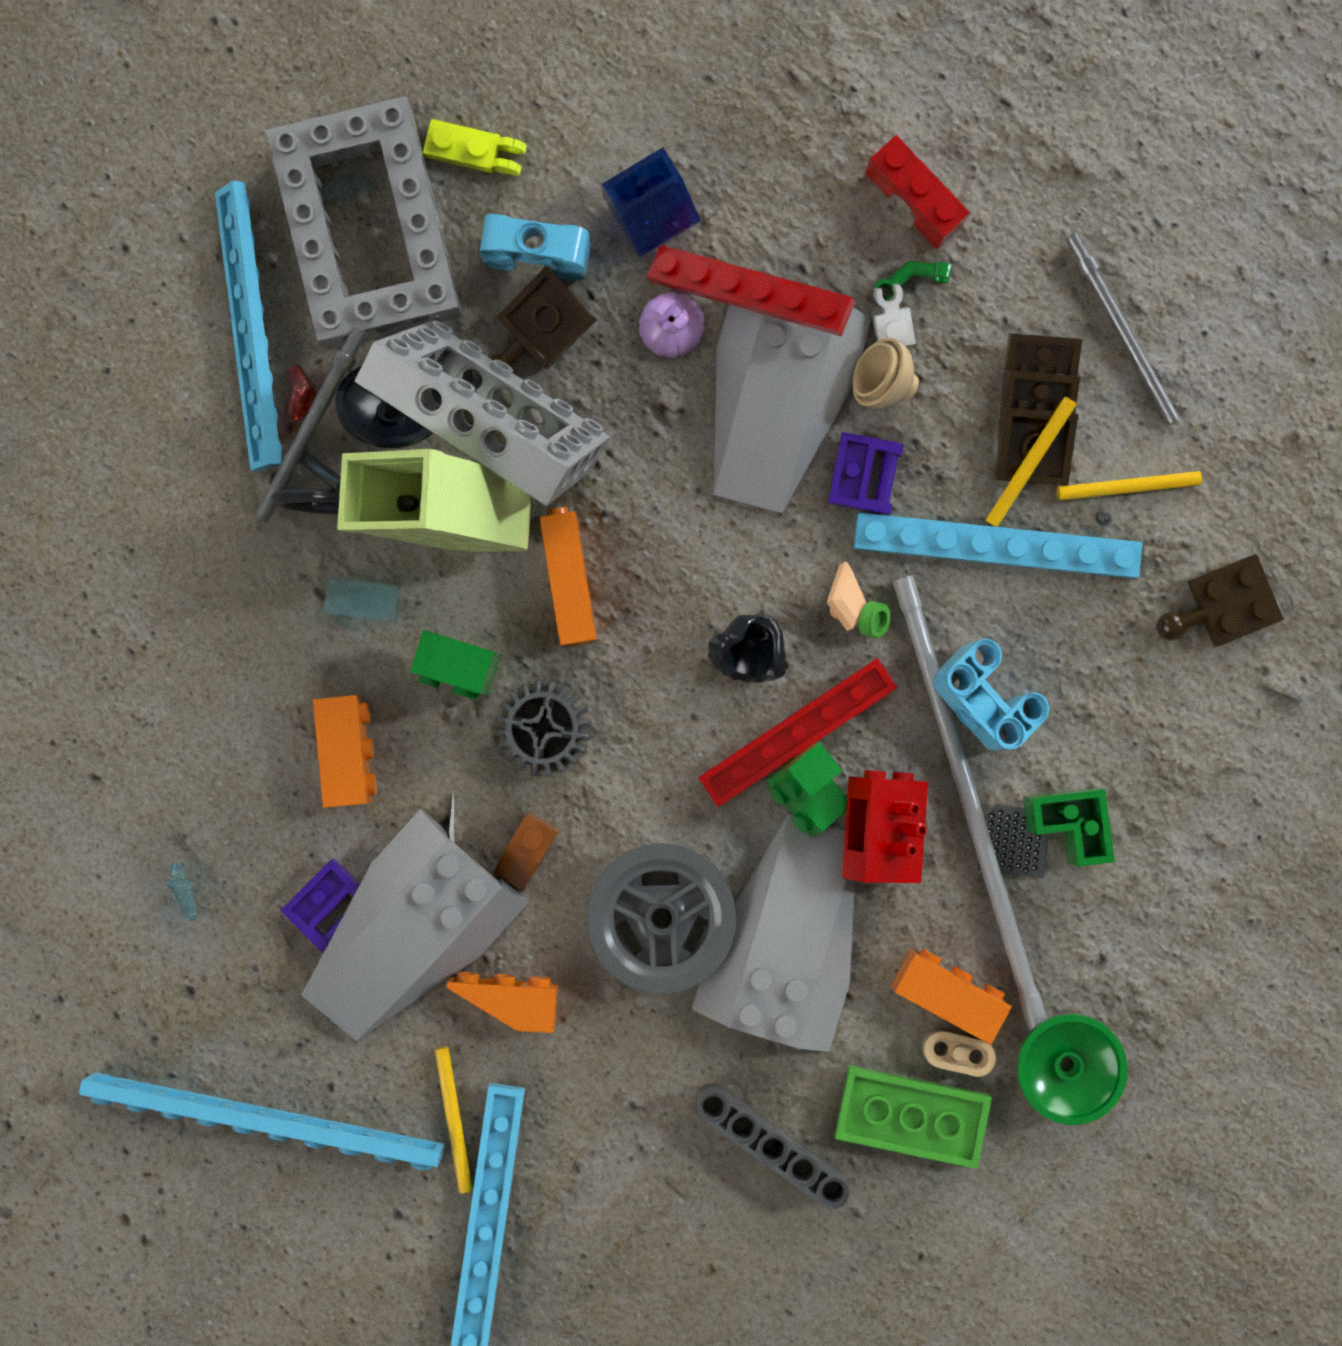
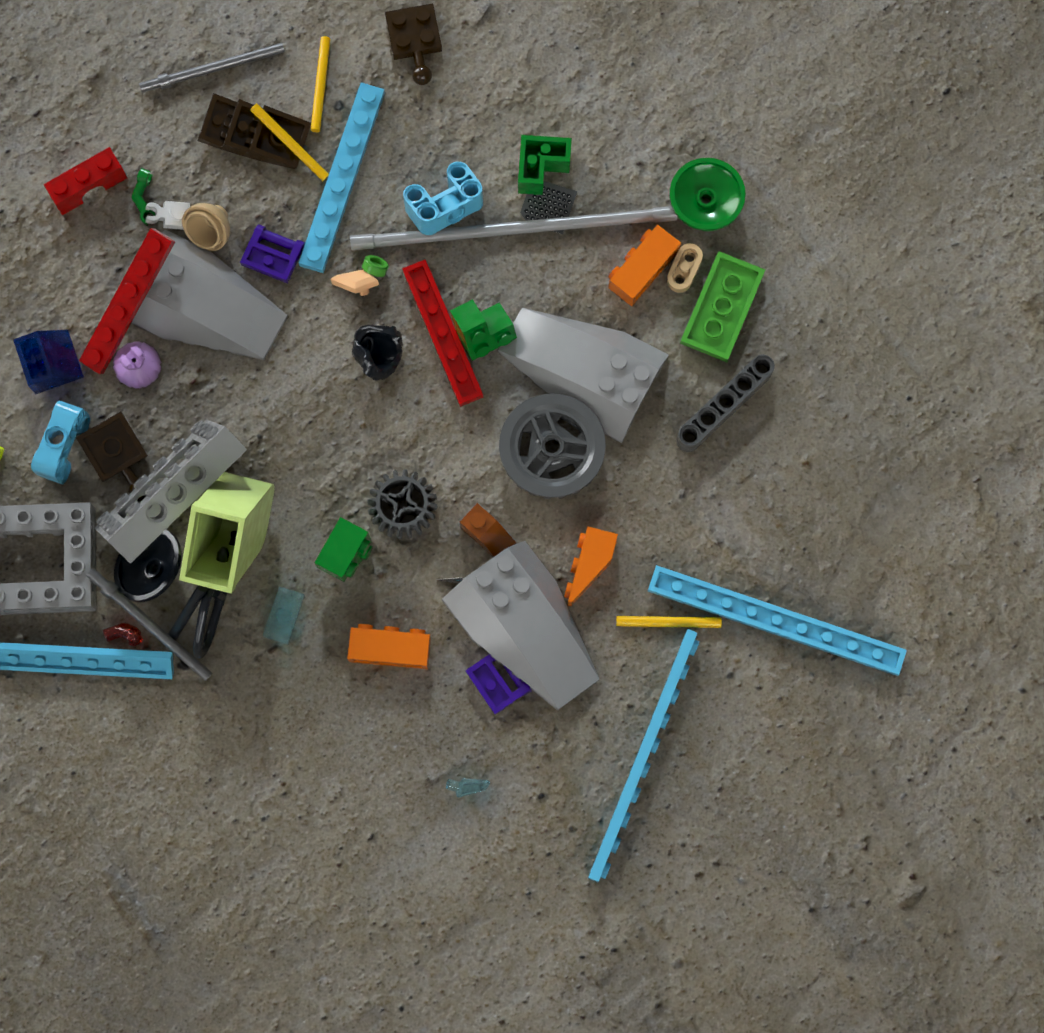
camera: 80 degrees left, 10 degrees down
(568, 577) = (300, 467): orange brick -> none
(884, 828) = (519, 283): red piece -> none

